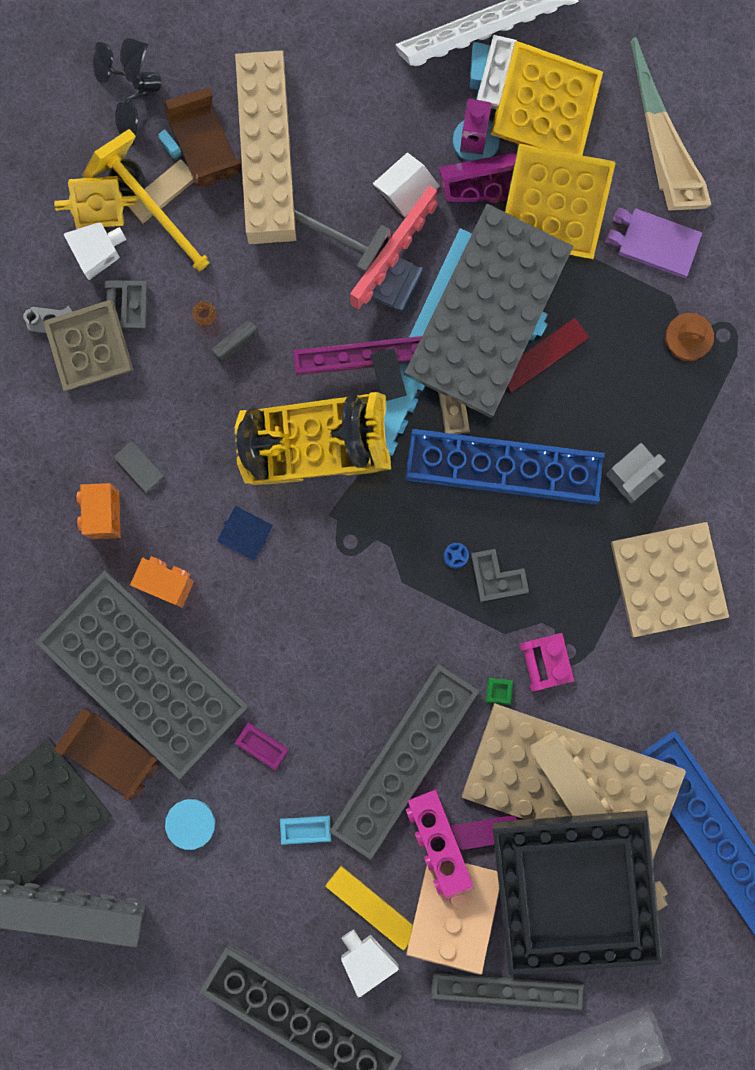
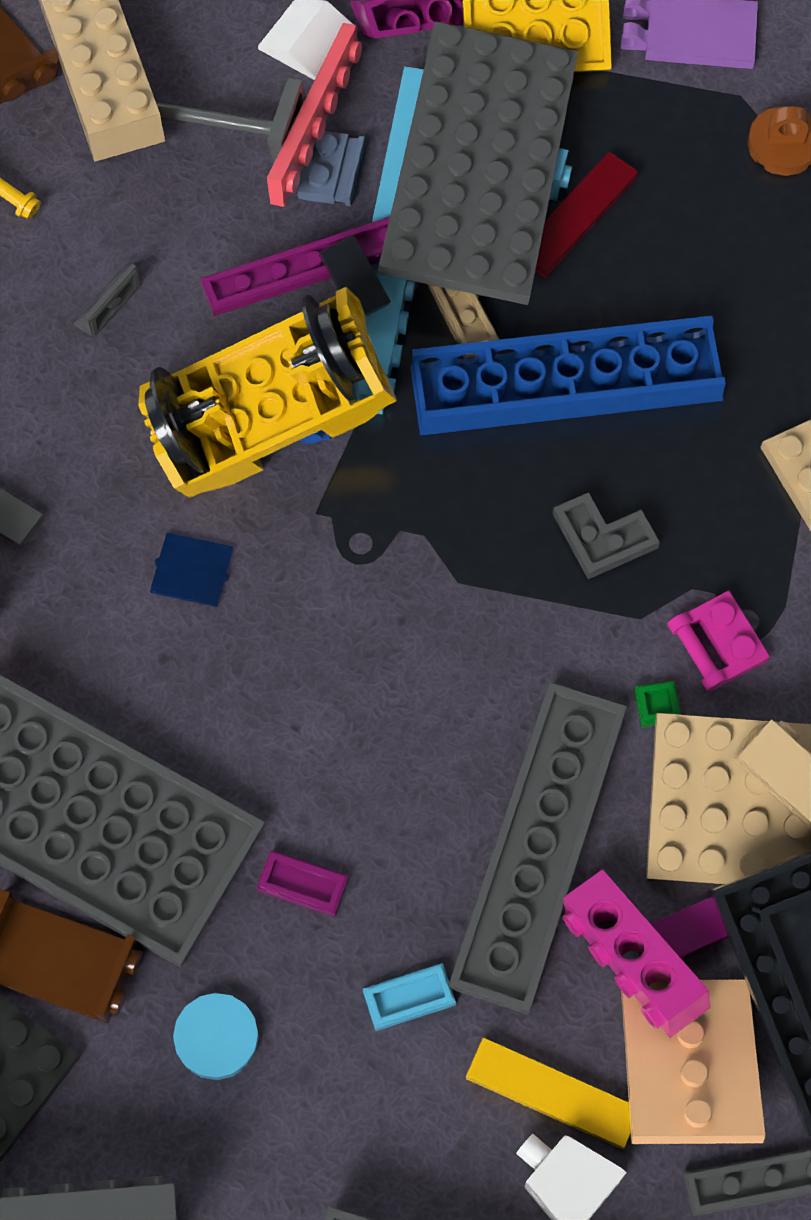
camera: 15 degrees left, 15 degrees down
(158, 580) = (79, 662): orange brick -> none
(198, 308) = (45, 264): clear orange plate -> none
(458, 552) = (532, 510): blue wheel -> none
(636, 472) = (767, 333): light grey plate -> none

